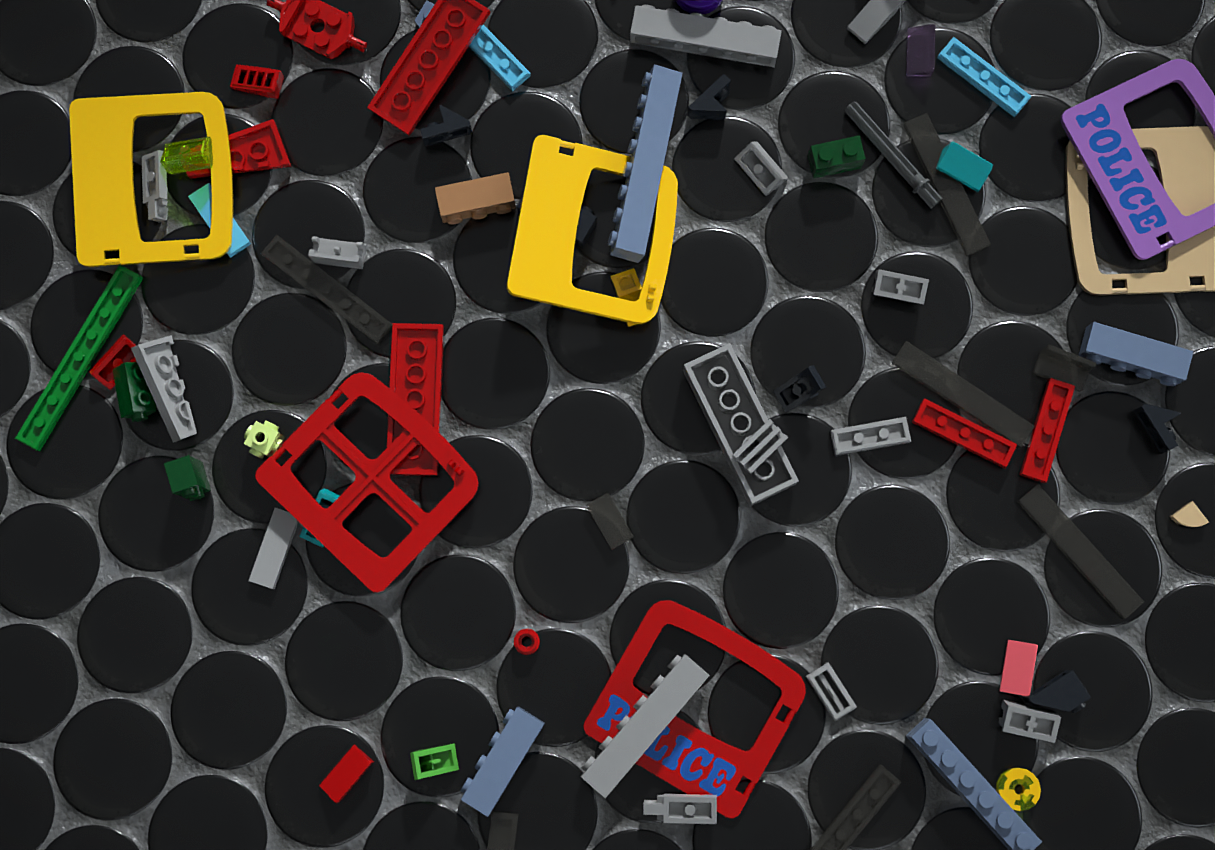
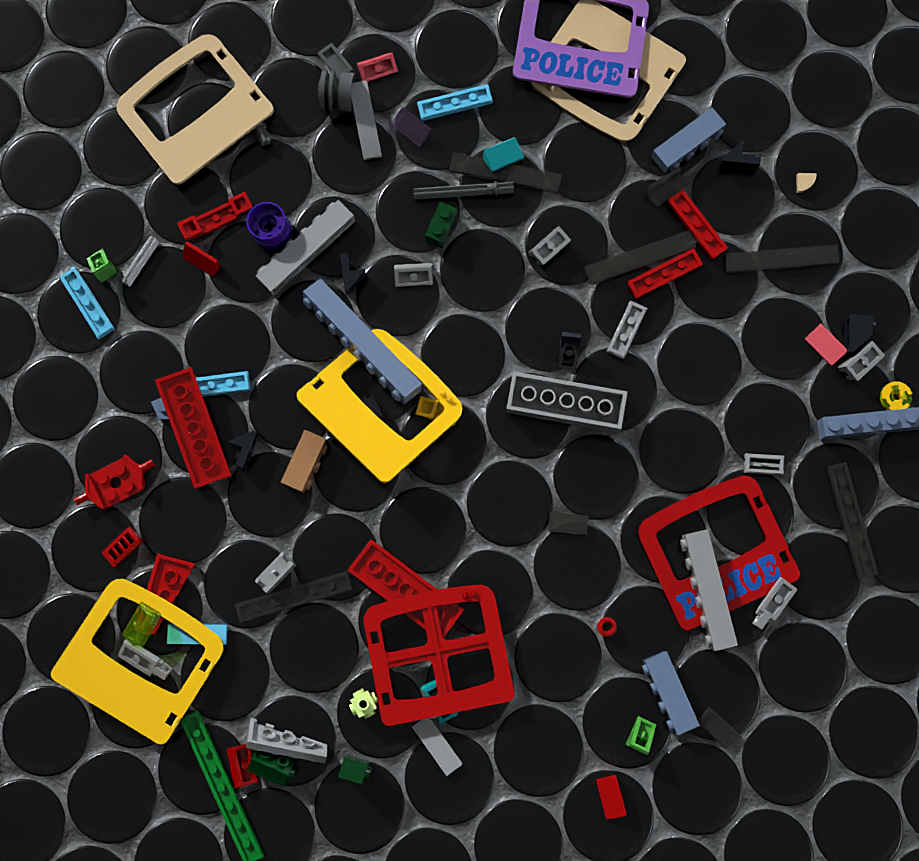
camera: 55 degrees left, 0 degrees up
(775, 431) = (588, 383): light grey tile -> none

